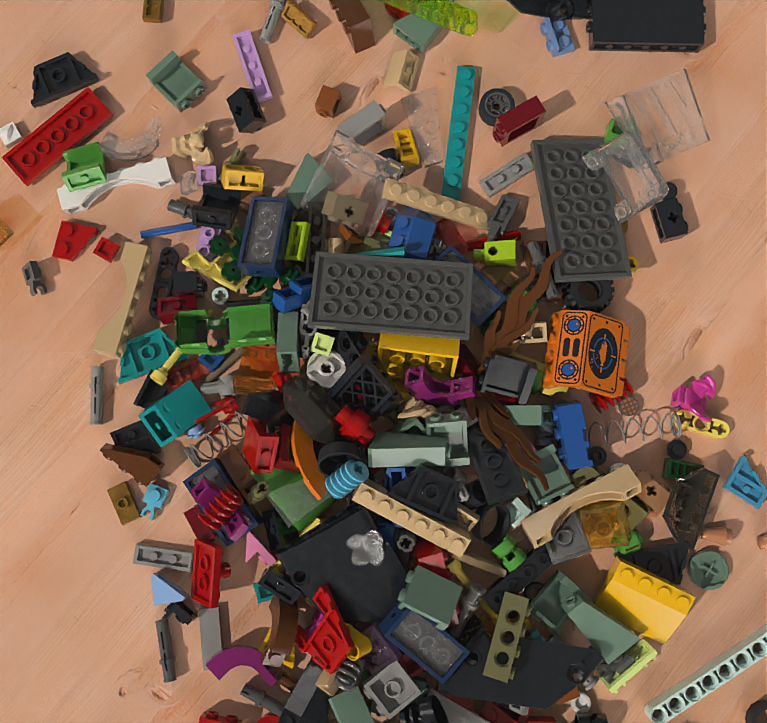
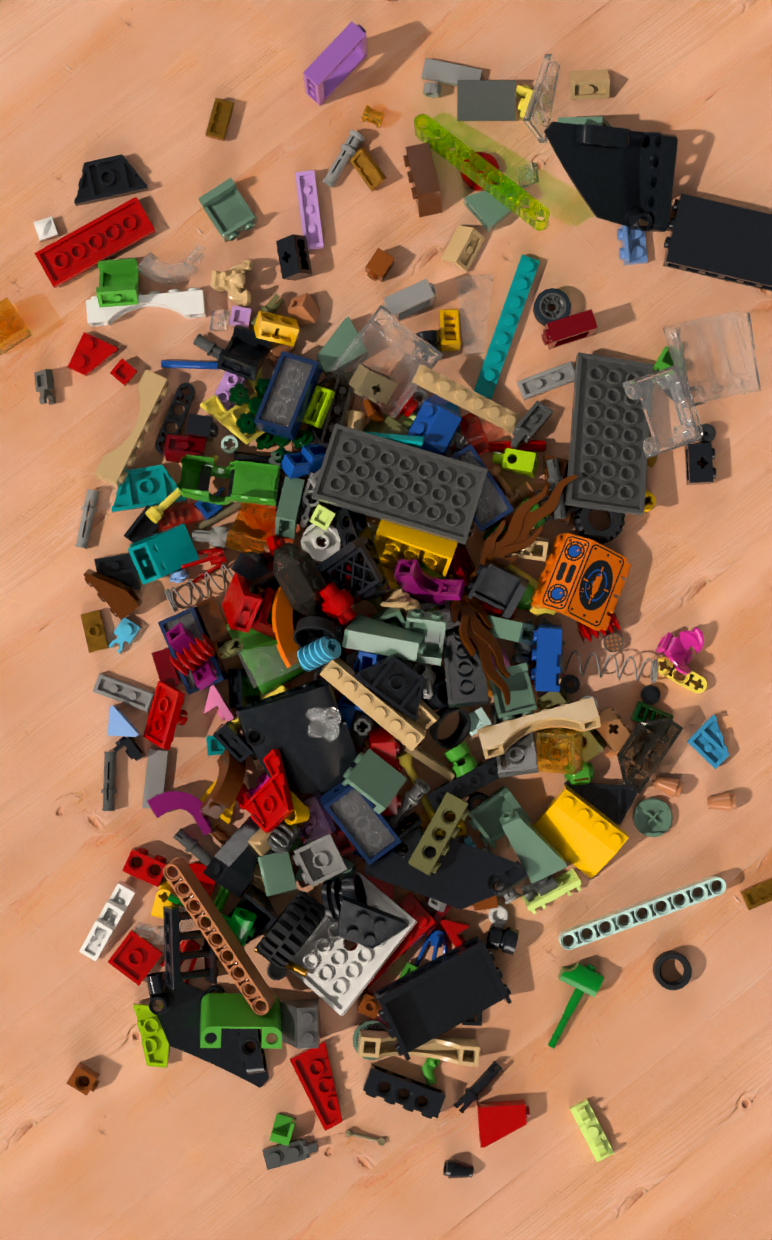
camera: 10 degrees right, 5 degrees up
(265, 157) = (304, 310): none -> nougat panel
(469, 471) = (440, 673): none -> dark grey plate

